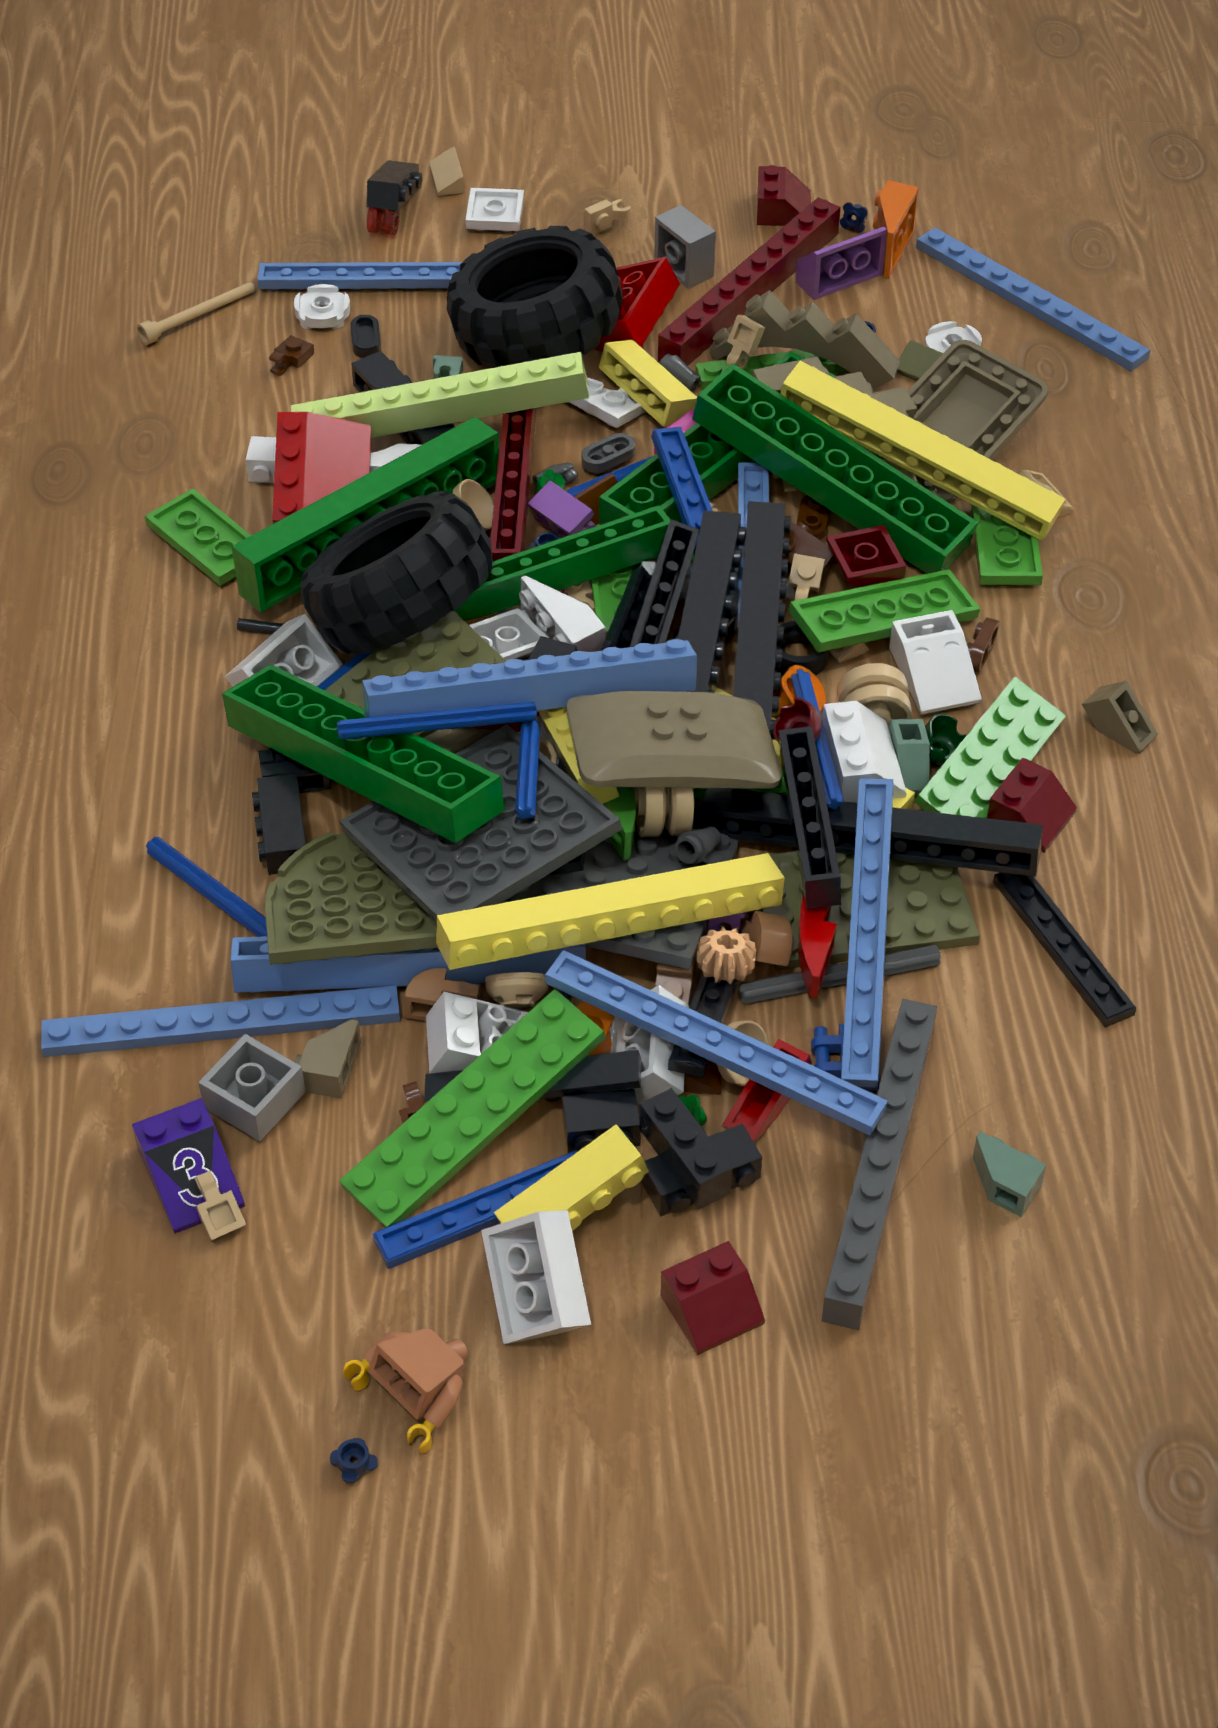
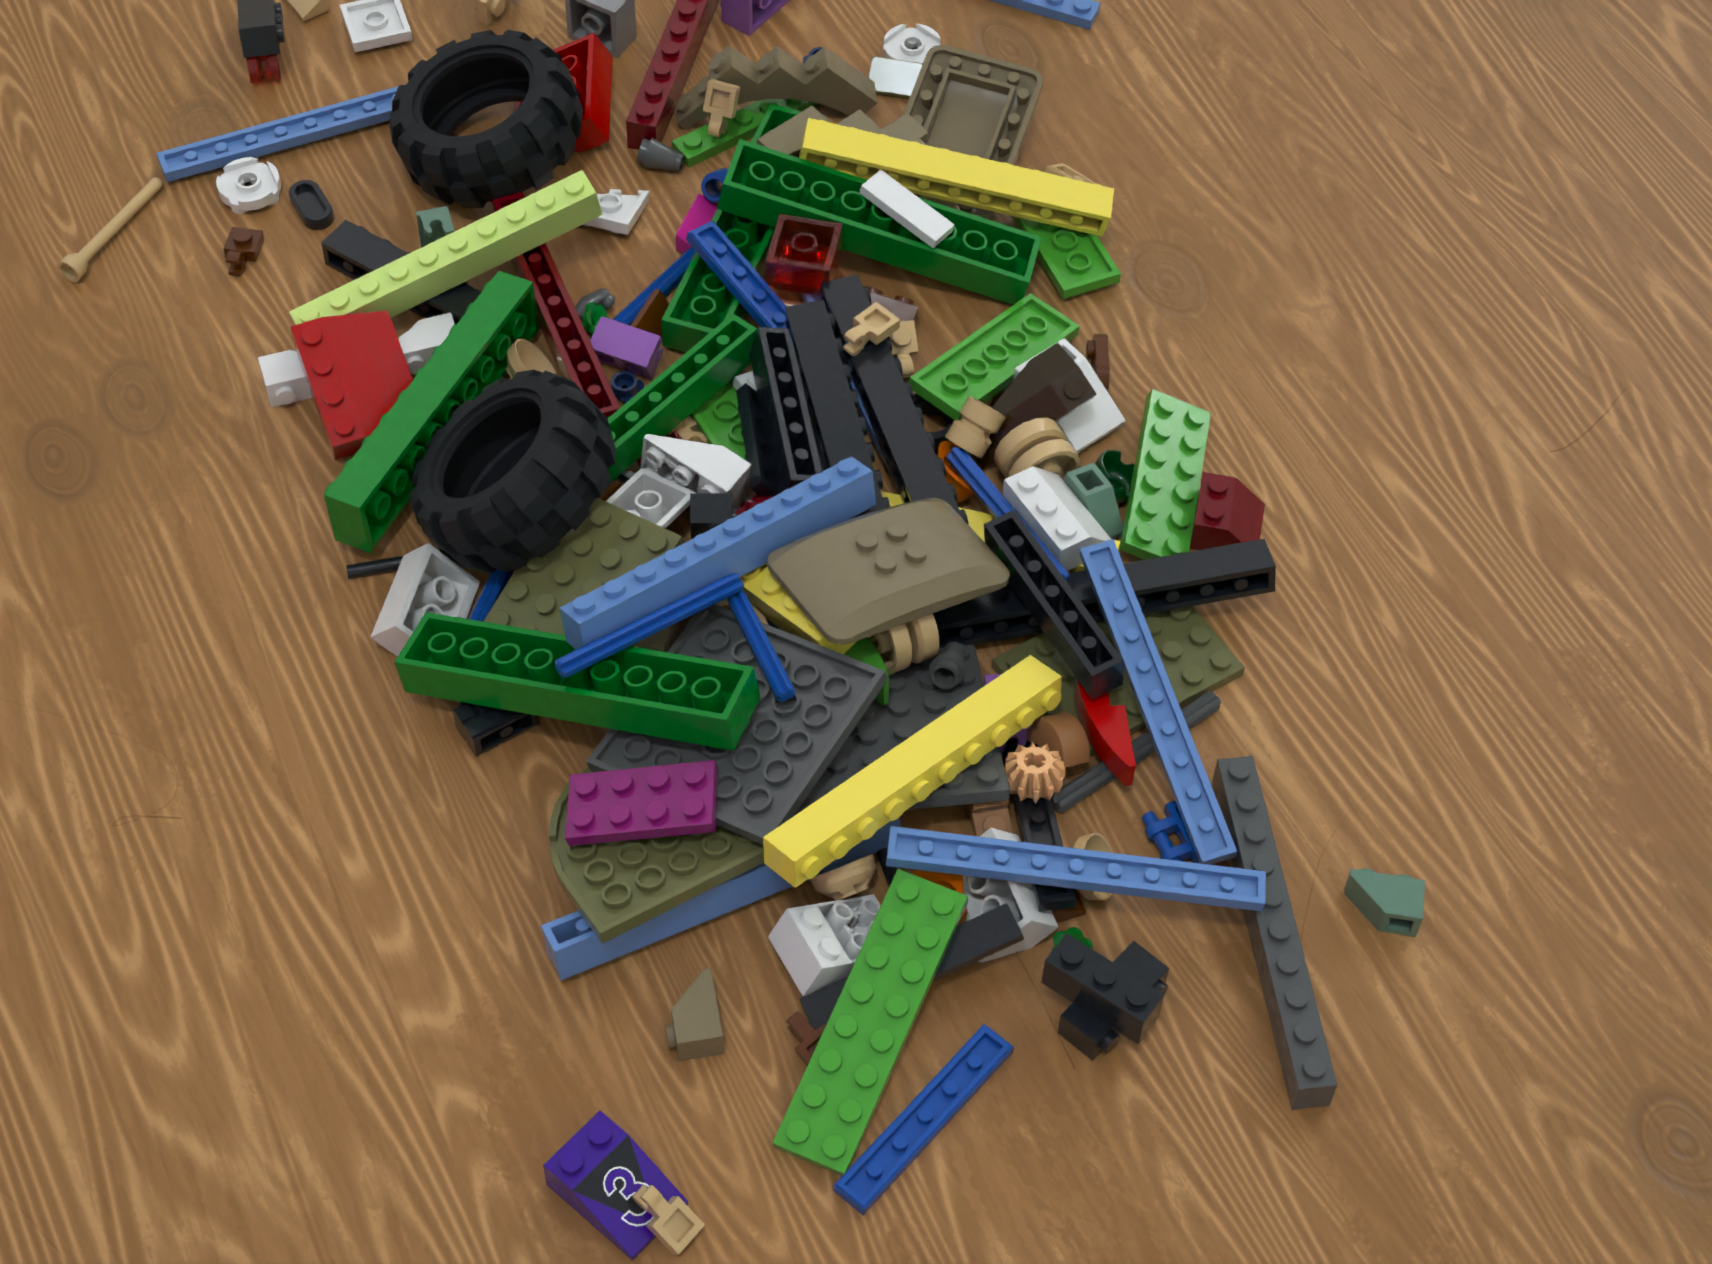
camera: 25 degrees left, 5 degrees up
(199, 533) = (261, 484): bright green plate -> none
(207, 886) = (478, 876): blue axle -> none
(218, 1021) = (557, 1018): medium blue plate -> none
(252, 1087) = (639, 1077): light grey brick -> none
(279, 820) = (512, 780): black brick -> none
(362, 864) = (642, 803): none -> magenta plate
(428, 987) = (764, 909): medium nougat brick -> none
(535, 1276) = (1023, 1173): white slope -> none
(583, 1181) = (1011, 1072): light yellow brick -> none
(595, 1113) = (994, 986): black brick -> none
(608, 453) = (630, 268): dark grey plate -> none
(646, 381) = (637, 176): light yellow brick -> none
(711, 1297) = (1188, 1127): dark red slope -> none
(746, 474) = (803, 254): none -> clear red brick
(759, 1105) = (1131, 913): red slope -> none
(771, 544) = (872, 324): none -> tan plate
(797, 716) = (987, 504): dark red hair -> none
(814, 516) = (870, 272): reddish brown plate -> none
(828, 658) = (975, 427): none -> tan wheel
(857, 461) = (906, 208): none -> white tile
(867, 556) = (954, 305): dark red slope -> none
(909, 644) = (1045, 388): none -> dark brown wedge
(1066, 947) = (1325, 652): black tile -> none
(1120, 716) = (1261, 397): dark tan slope -> none

